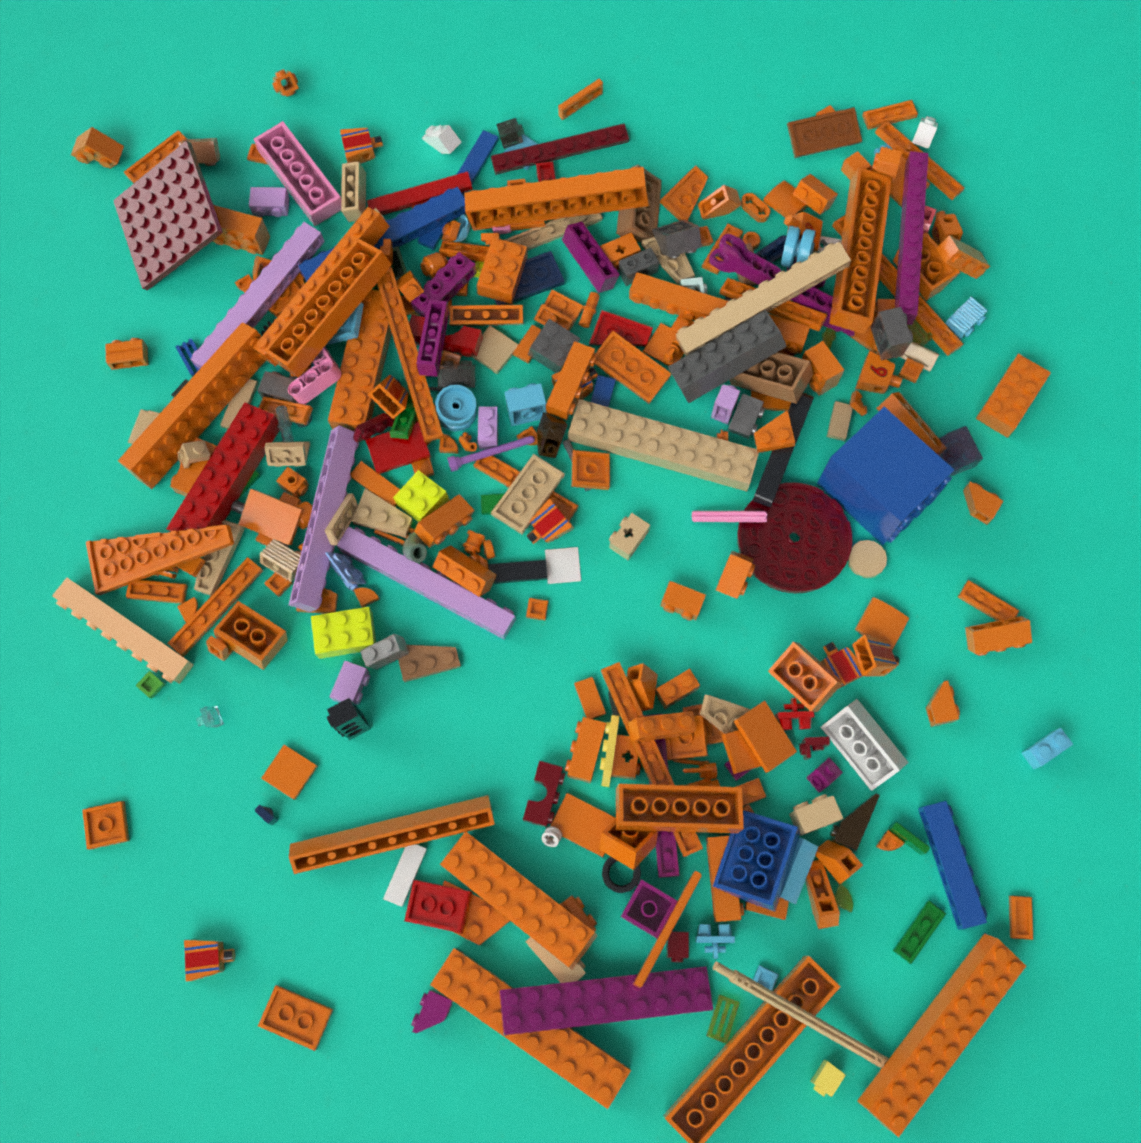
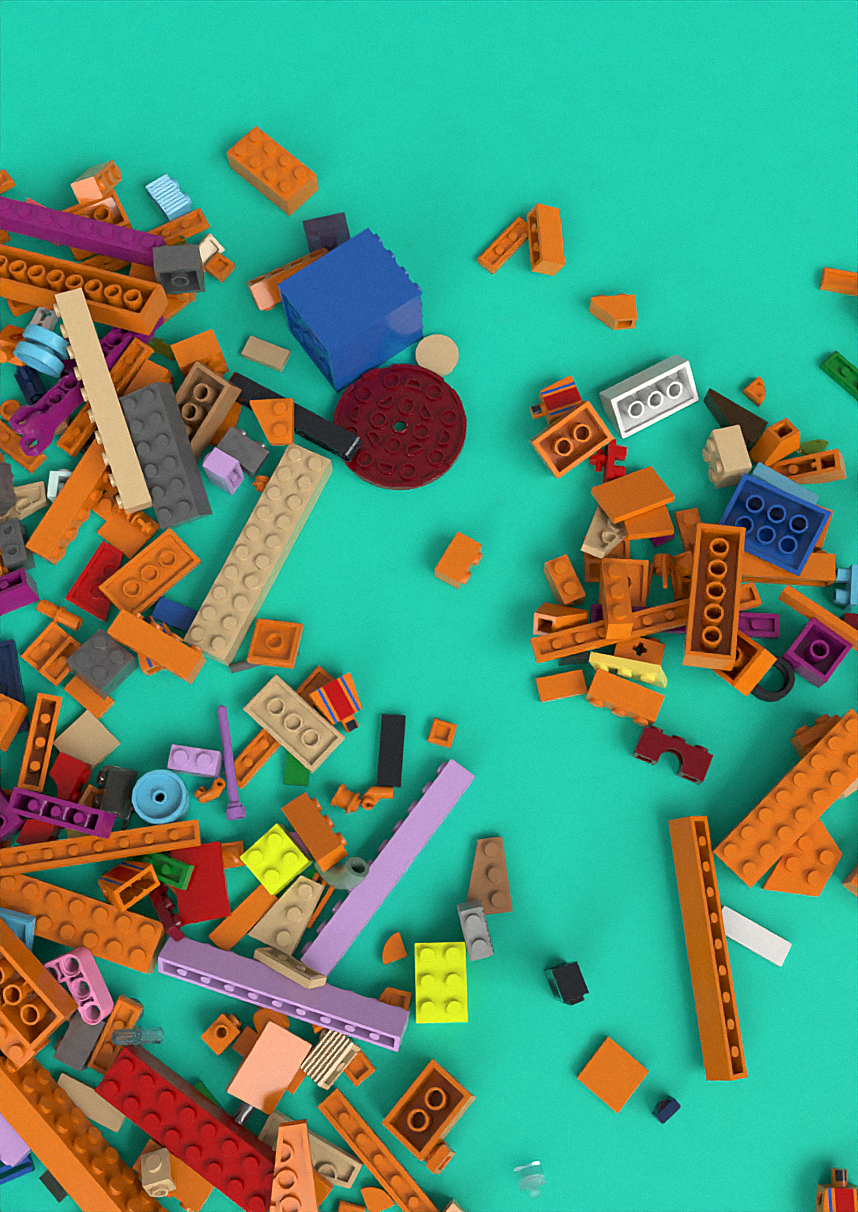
camera: 80 degrees left, 0 degrees up
(287, 453) = (181, 1035): tan bracket -> none
(343, 566) = (349, 973): light blue hinge -> none
(350, 683) = (510, 981): lavender brick -> none
(438, 906) = (796, 898): red tile -> none
(448, 445) = (208, 817): orange tile -> none
(464, 570) = (383, 814): orange brick -> none
(488, 549) = (357, 782): orange tile -> none
(525, 404) = (175, 708): medium azure brick -> none
(528, 432) = (212, 714): orange tile -> none
(550, 434) = (220, 684): dark brown slope -> none
(553, 831) = (723, 752): white bush -> none
(562, 565) = (390, 695): white sticker -> none
(582, 823) = (710, 712): orange tile -> none
(627, 546) = (364, 597): tan brick -> none
(729, 516) = (364, 491): bright pink axle -> none
(734, 575) = (440, 493): orange brick -> none
(815, 743) = (643, 448): dark red bracket -> none
(824, 775) = (679, 442): magenta bracket -> none
(857, 404) = (249, 331): orange tile -> none
(874, 656) = (554, 365): orange torso -> none
(877, 375) = (218, 303): orange torso -> none
(882, 622) = (515, 353): orange slope -> none
(909, 839) = (755, 370): green tile -> none
(944, 226) = (55, 193): orange torso -> none
(952, 865) = (786, 333): blue brick -> none
(981, 503) = (394, 225): orange slope -> none
(1047, 748) = (673, 219): medium azure brick -> none

